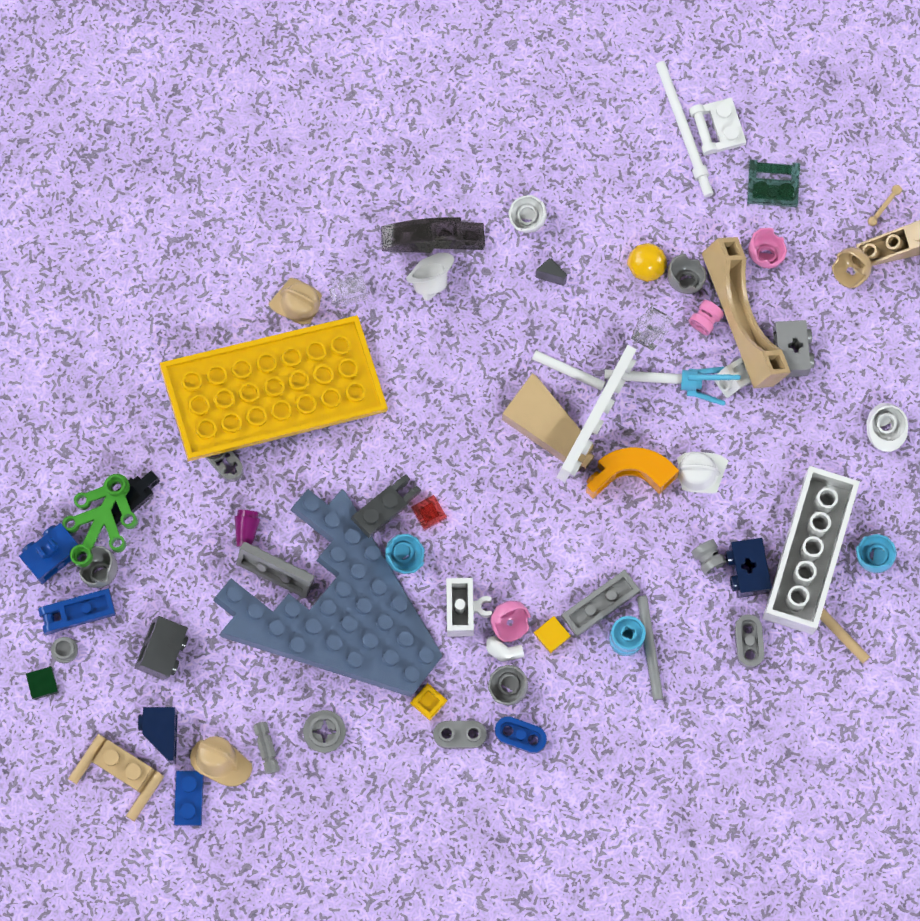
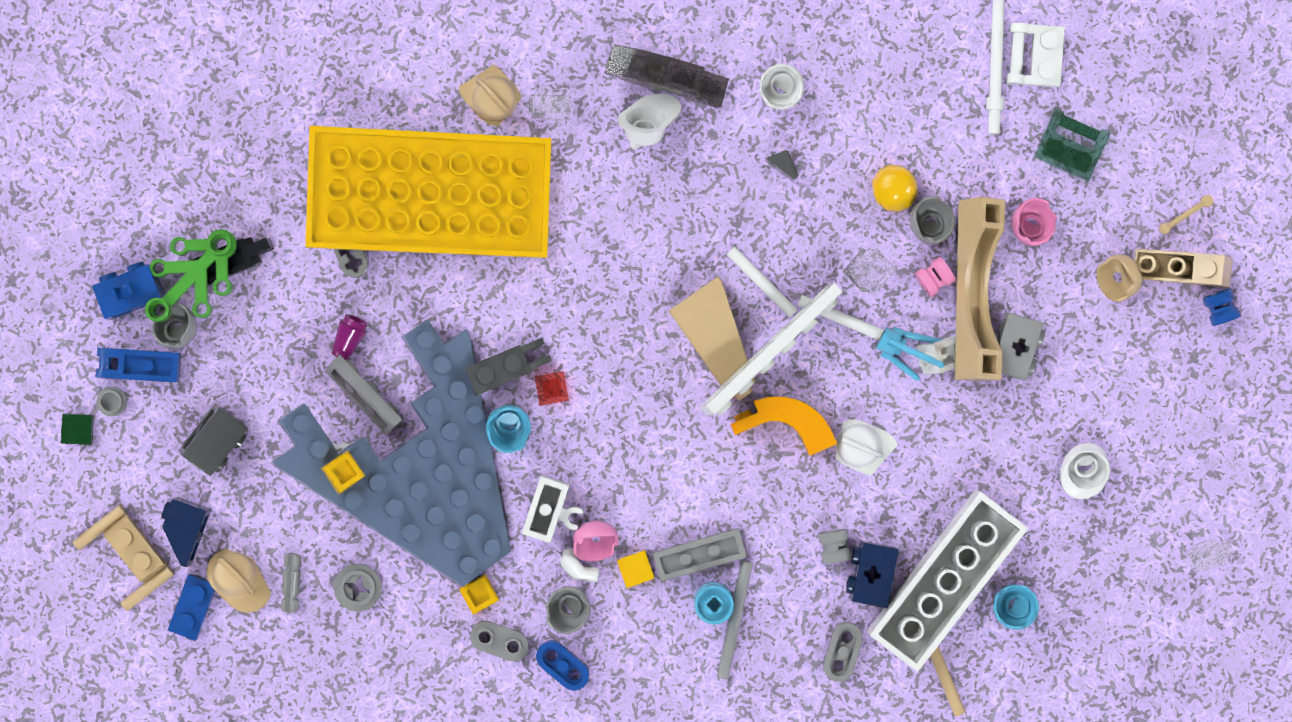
camera: 25 degrees right, 15 degrees up
(282, 622) = (343, 472): none -> yellow tile

